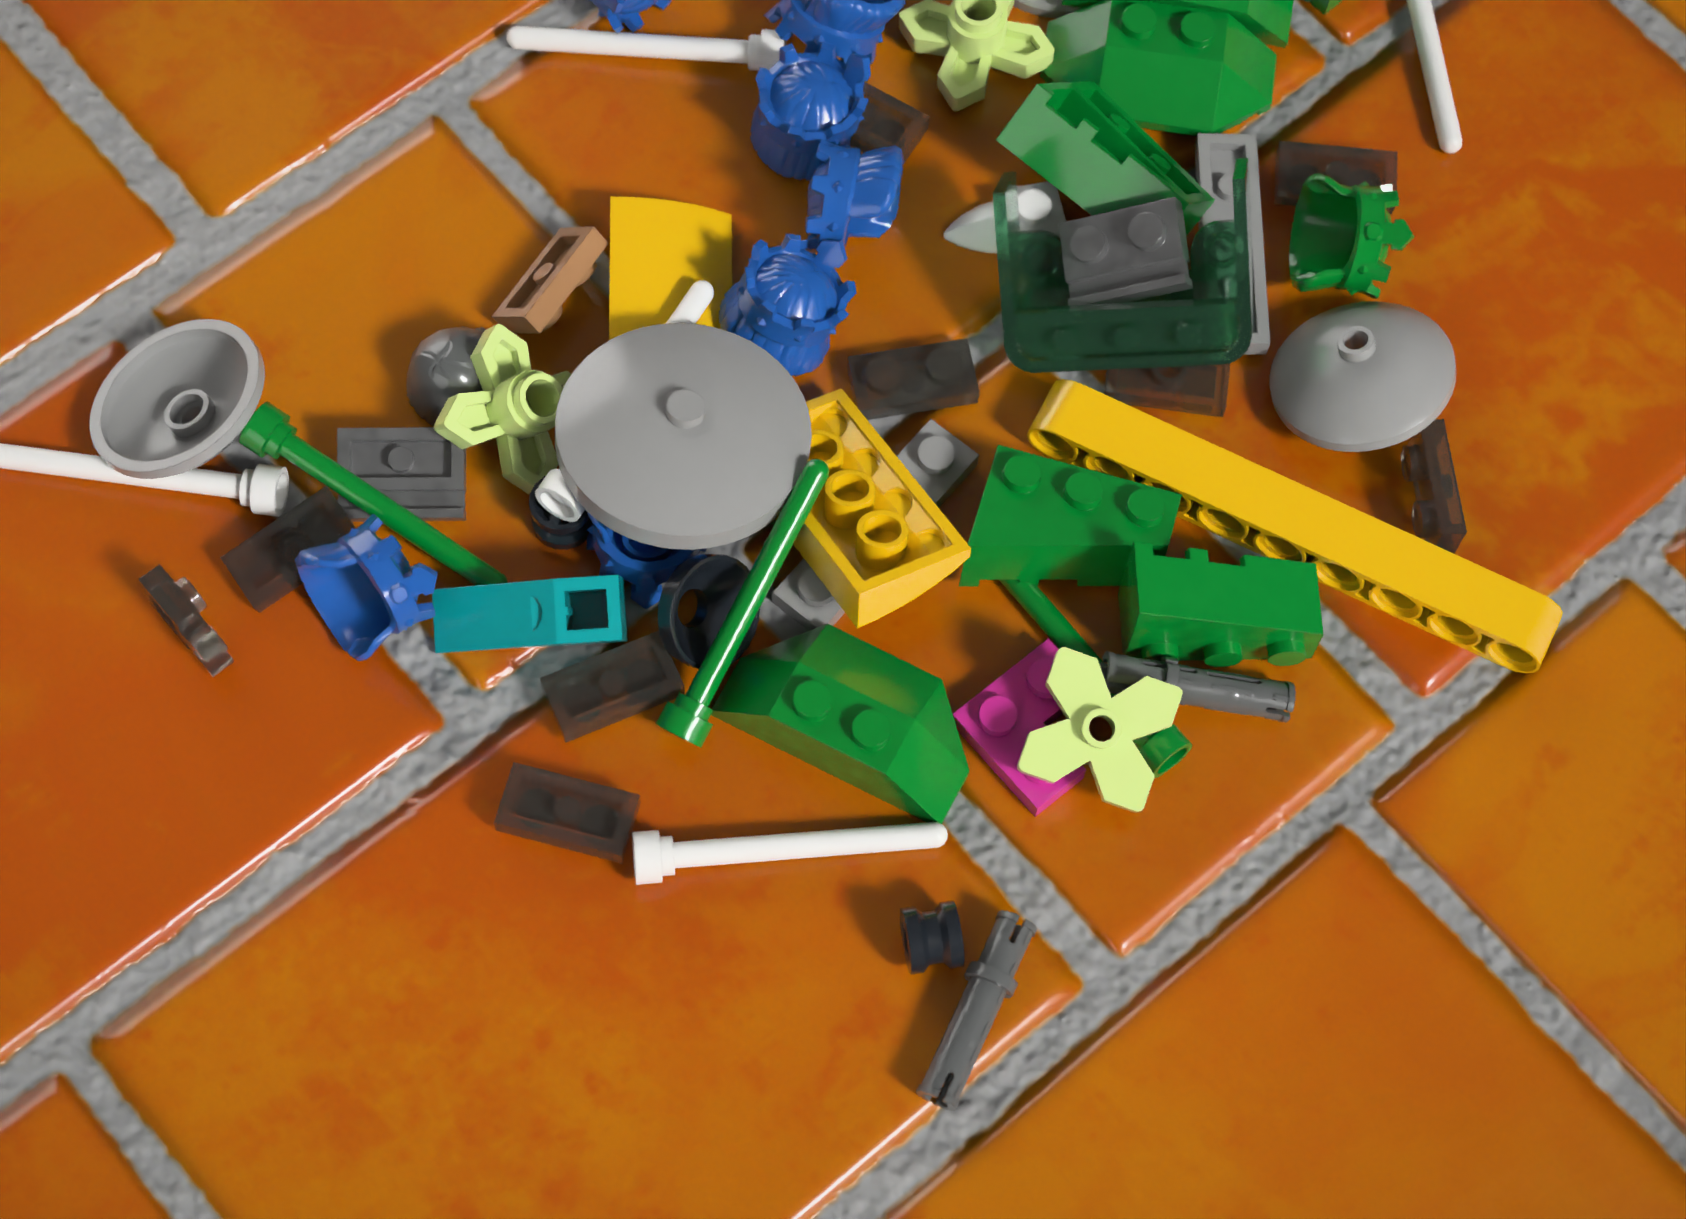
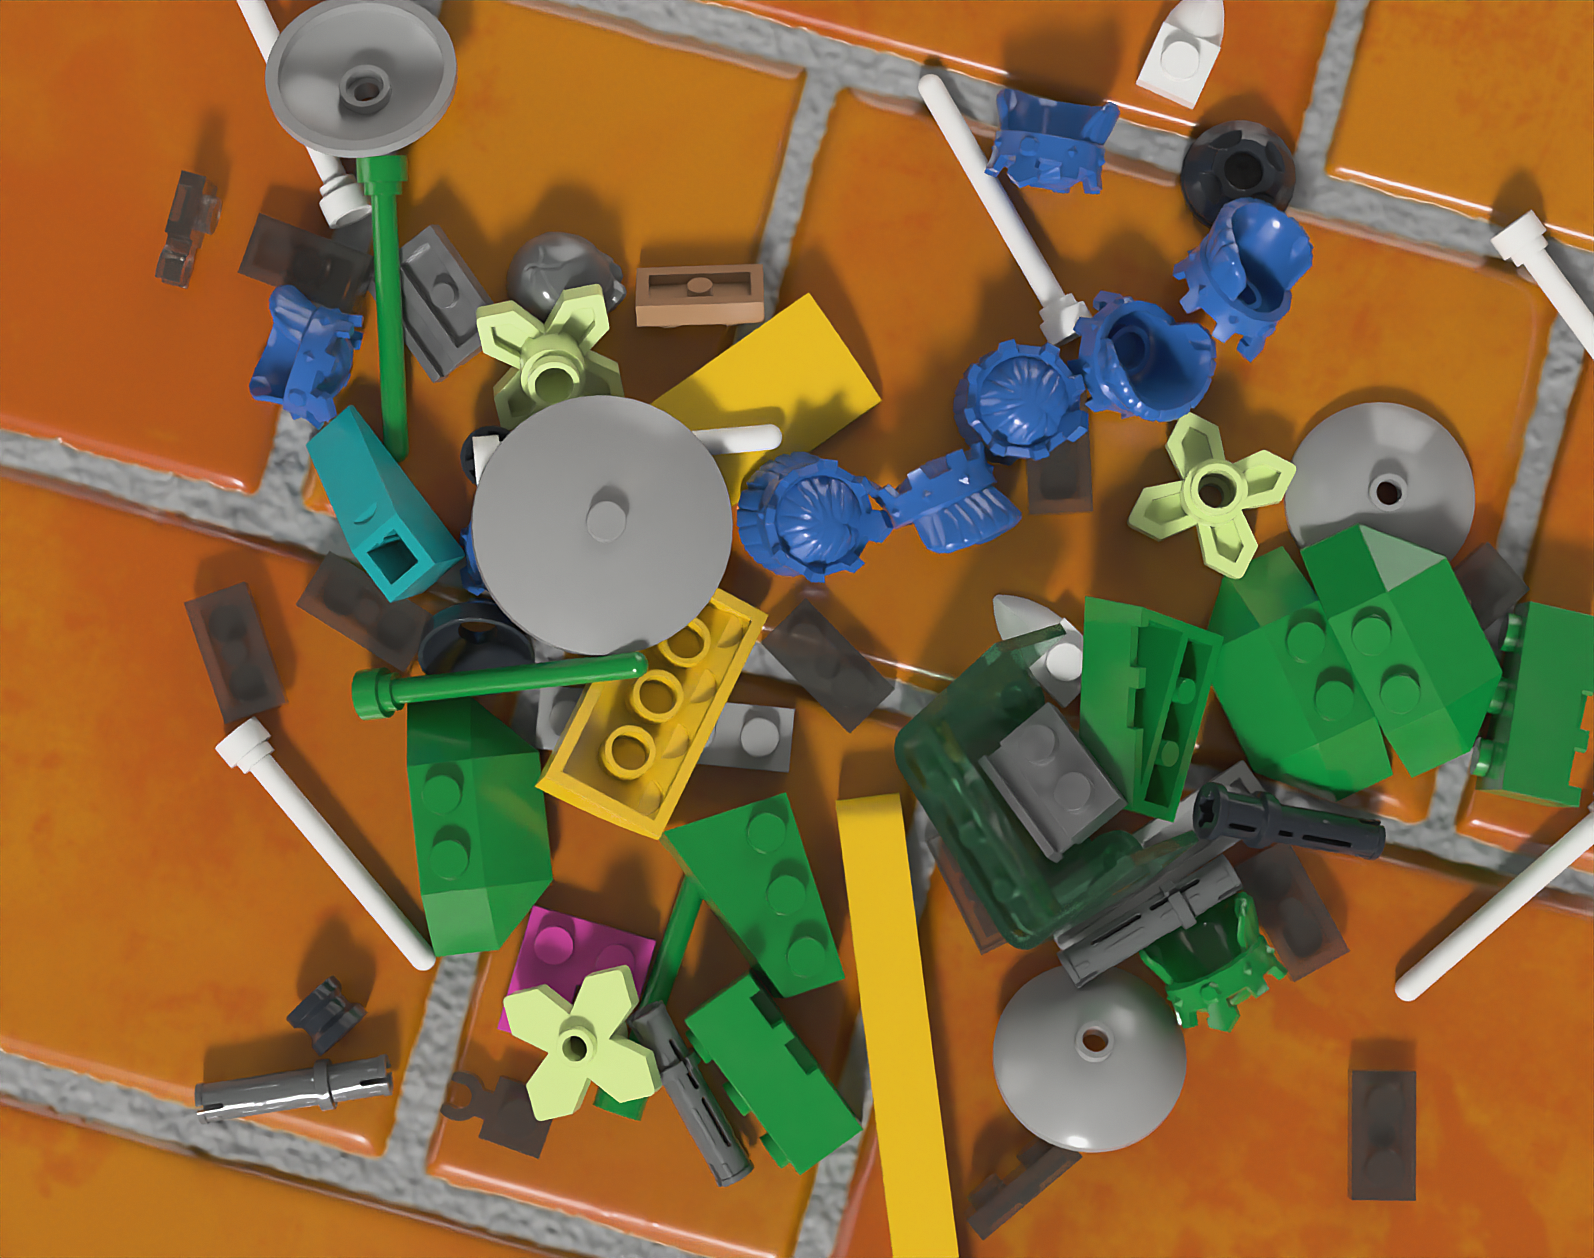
camera: 60 degrees right, 20 degrees up
(1116, 847) = (505, 1112): none -> clear smoke plate
(1282, 241) = (1149, 921): none -> dark grey pin
(1304, 105) = (1262, 820): none -> black pin
(1555, 225) = (1381, 1135): none -> clear smoke plate

